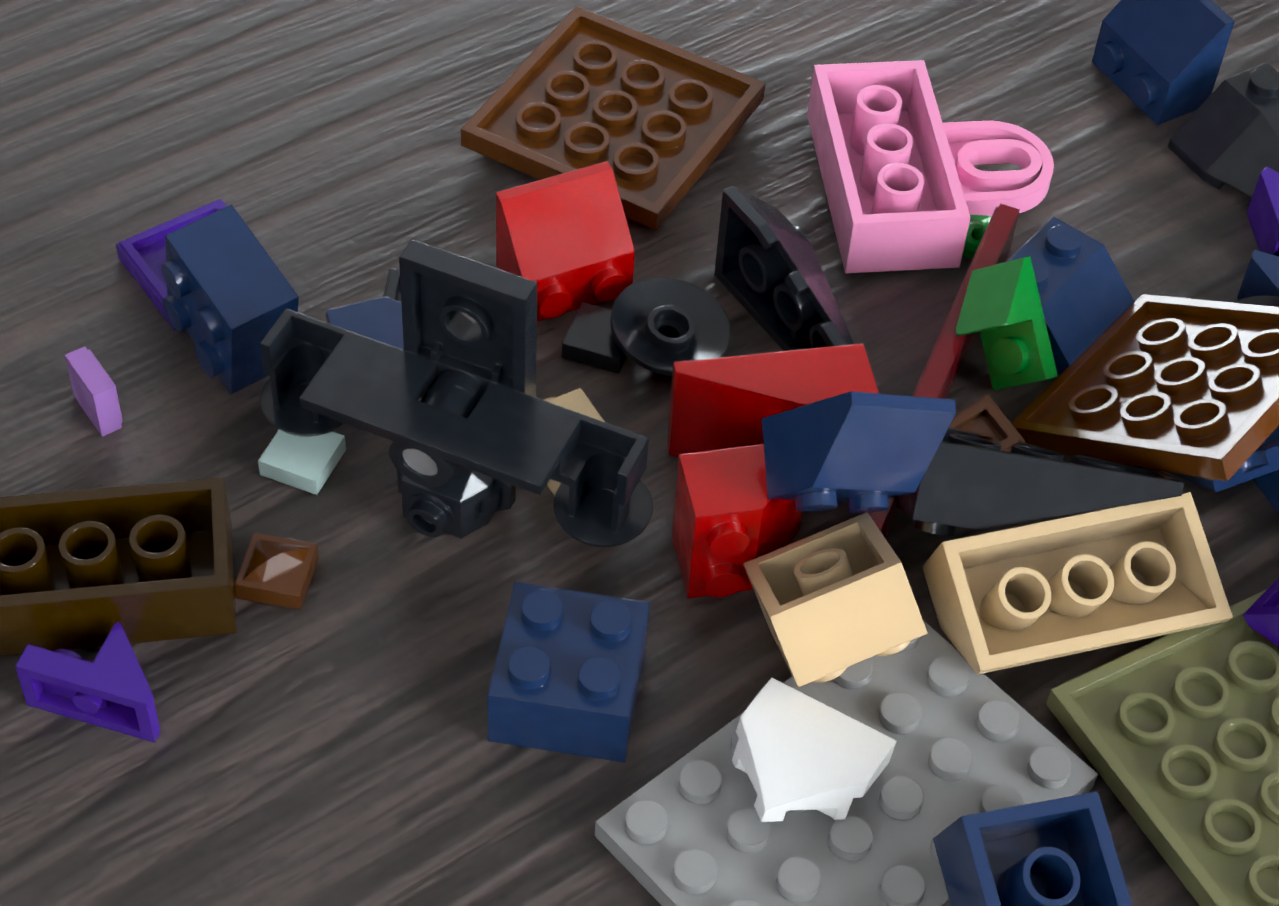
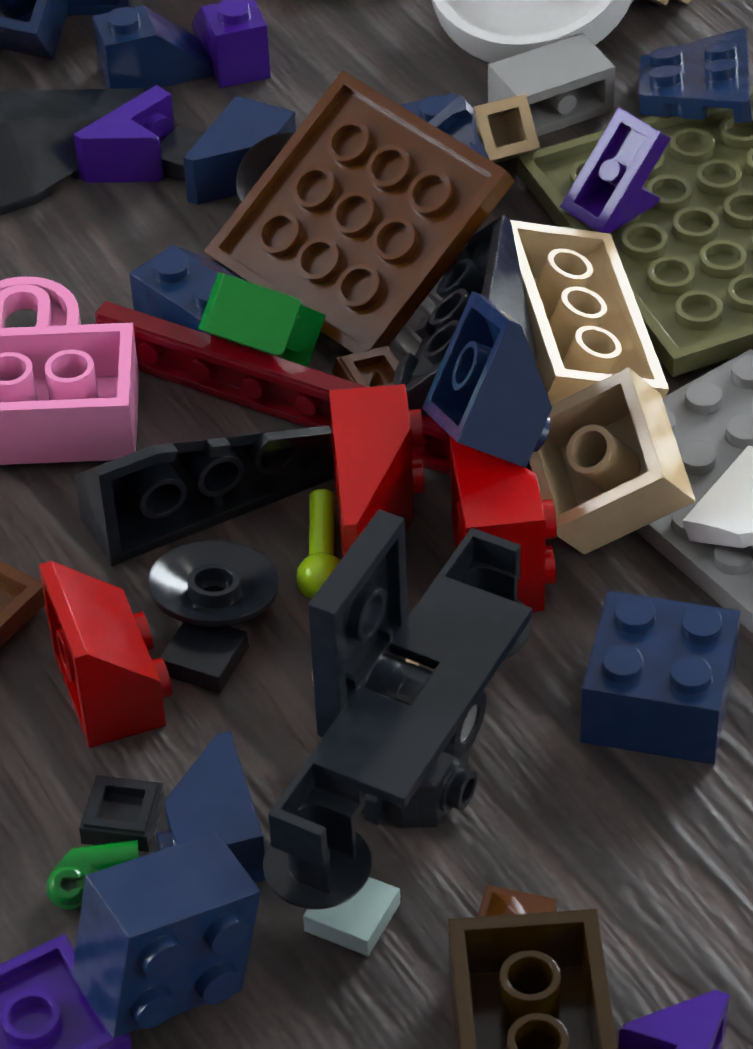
camera: 80 degrees left, 5 degrees down
(341, 274) = (67, 879): none -> green arm

